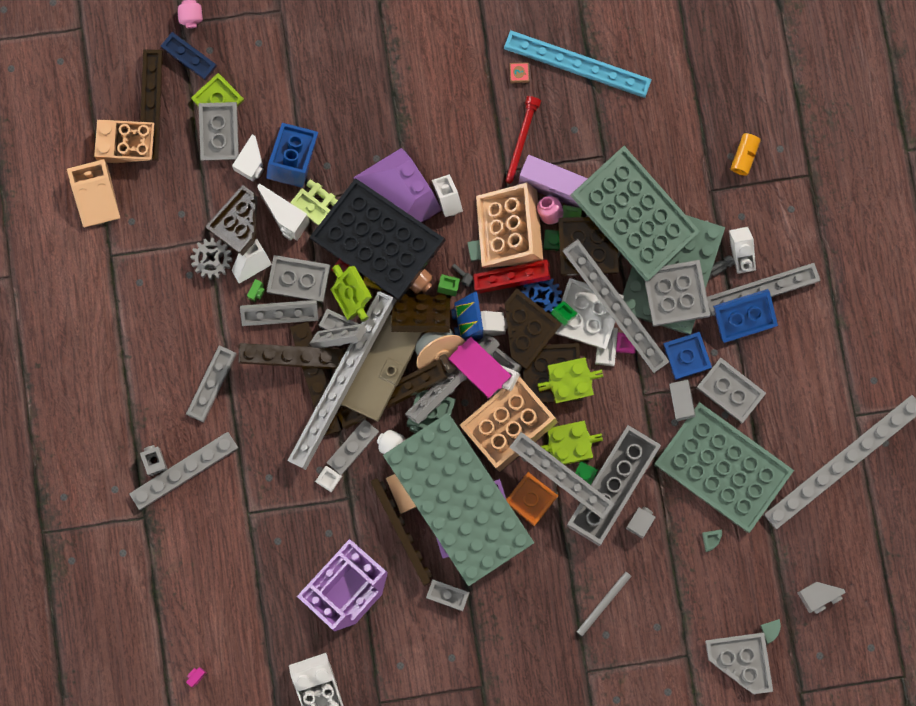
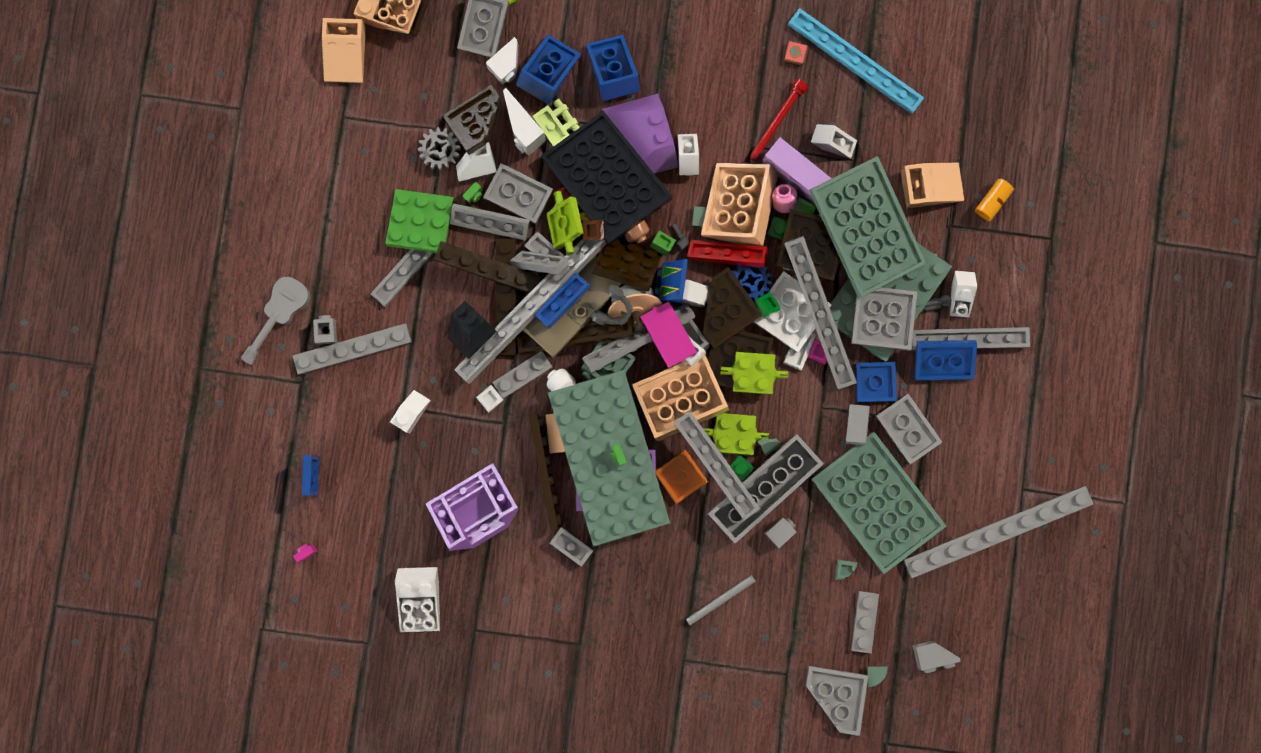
camera: 15 degrees right, 5 degrees up
(108, 442) = (286, 300): none -> light grey piece
(180, 600) = (310, 475): none -> blue tile
(212, 331) = (419, 220): none -> bright green plate
(257, 513) = (410, 411): none -> white slope
(290, 419) = (469, 330): none -> black slope
(353, 135) = (613, 67): none -> blue slope
(370, 365) = (562, 300): none -> blue plate
(380, 291) = (593, 230): none -> reddish brown tile
(421, 342) = (602, 318): none -> dark grey piece
(466, 492) = (617, 455): none -> bright green plate
(579, 143) = (833, 140): none -> white slope
(605, 445) = (769, 445): none -> sand green tile
(683, 157) = (931, 184): none -> light nougat slope
(745, 583) = (864, 622): none -> light grey plate

